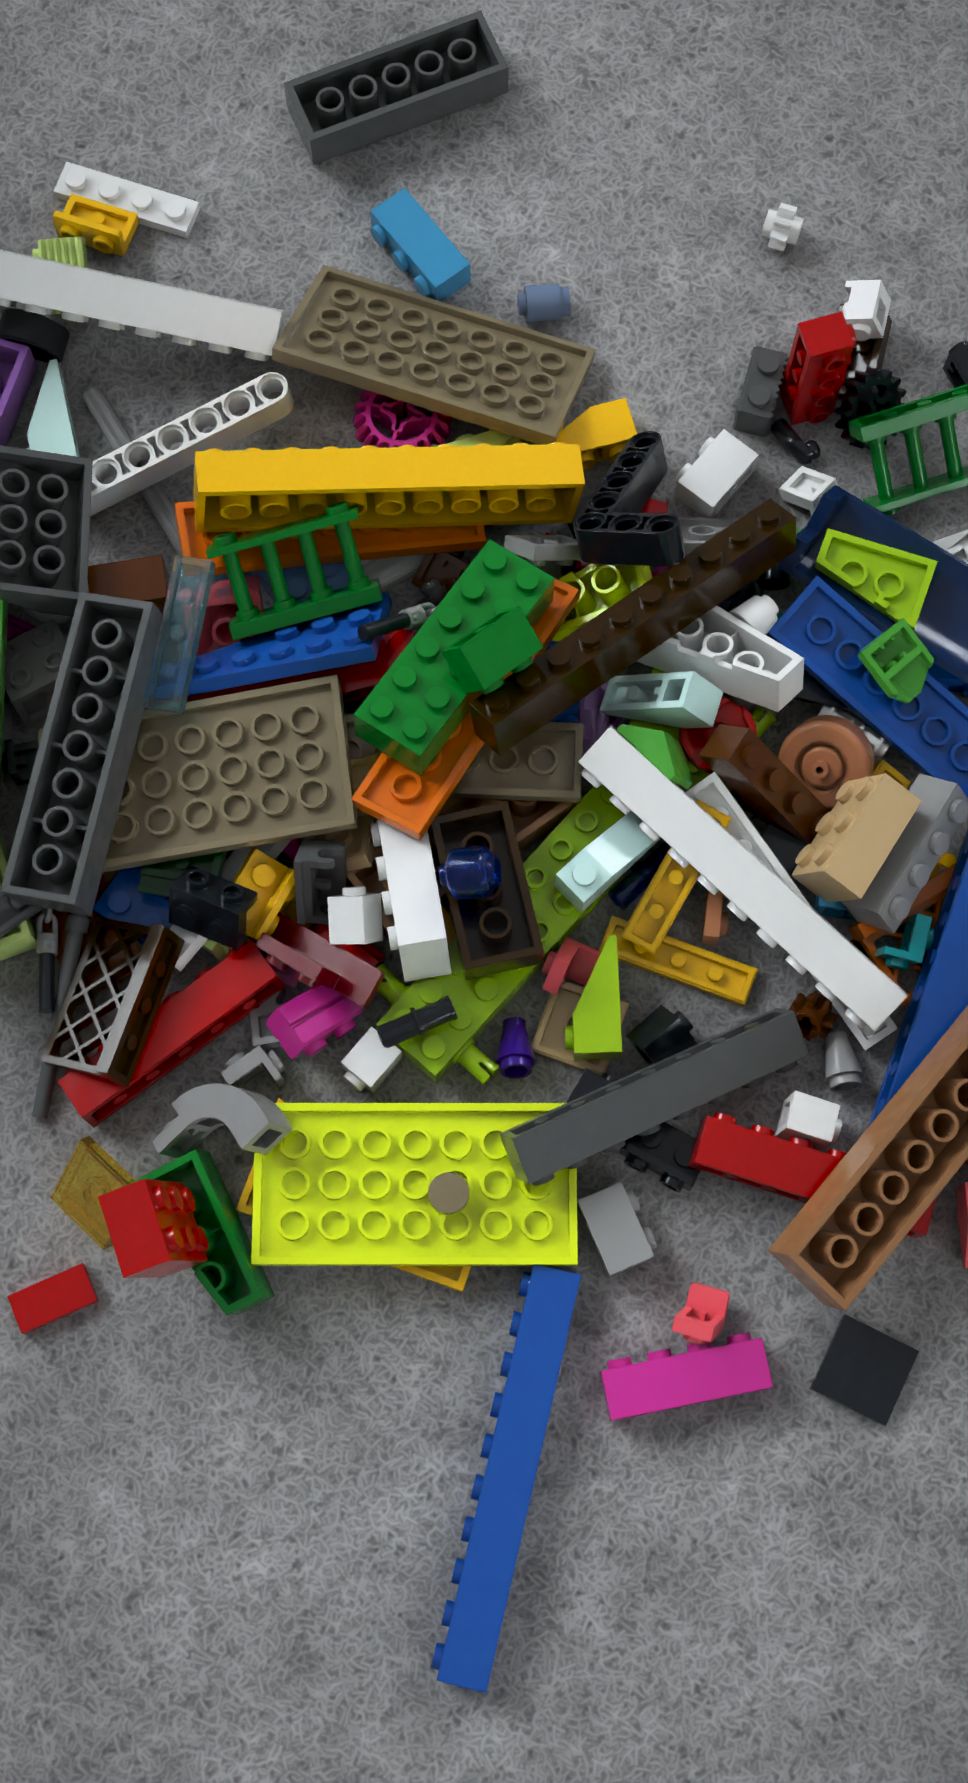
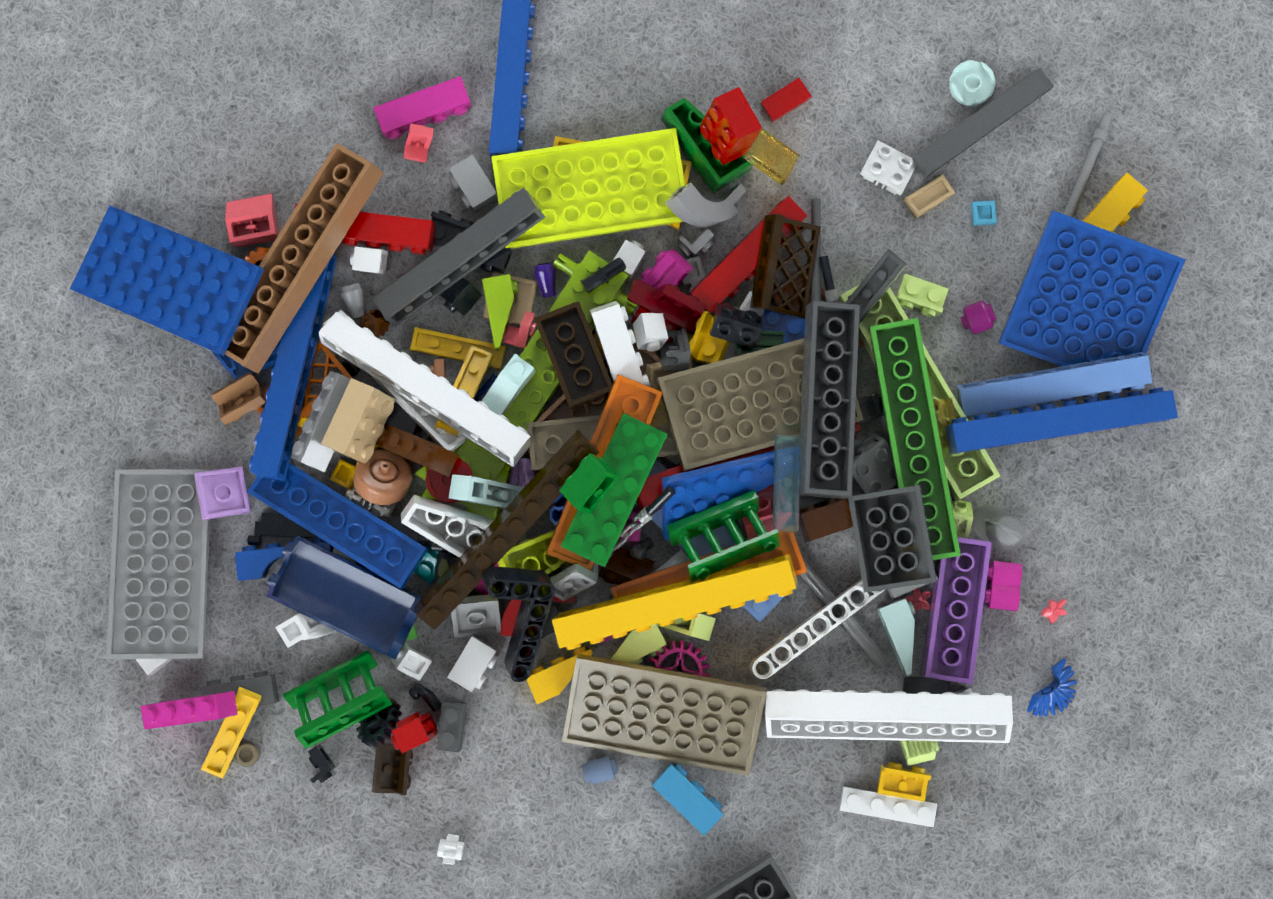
camera: 165 degrees right, 10 degrees up
(448, 1193) = (570, 182): dark tan tile -> none
(471, 873) = (583, 354): clear blue head -> none
(661, 750) = (481, 455): bright green slope -> none
(758, 613) = (435, 556): white hat -> none
(864, 1370) = (322, 128): black tile -> none
(867, 308) = (389, 789): white brick -> none
(878, 574) = (360, 600): lime wing -> none
(898, 662) = (345, 540): bright green slope -> none
(915, 941) = (319, 371): teal bracket -> none

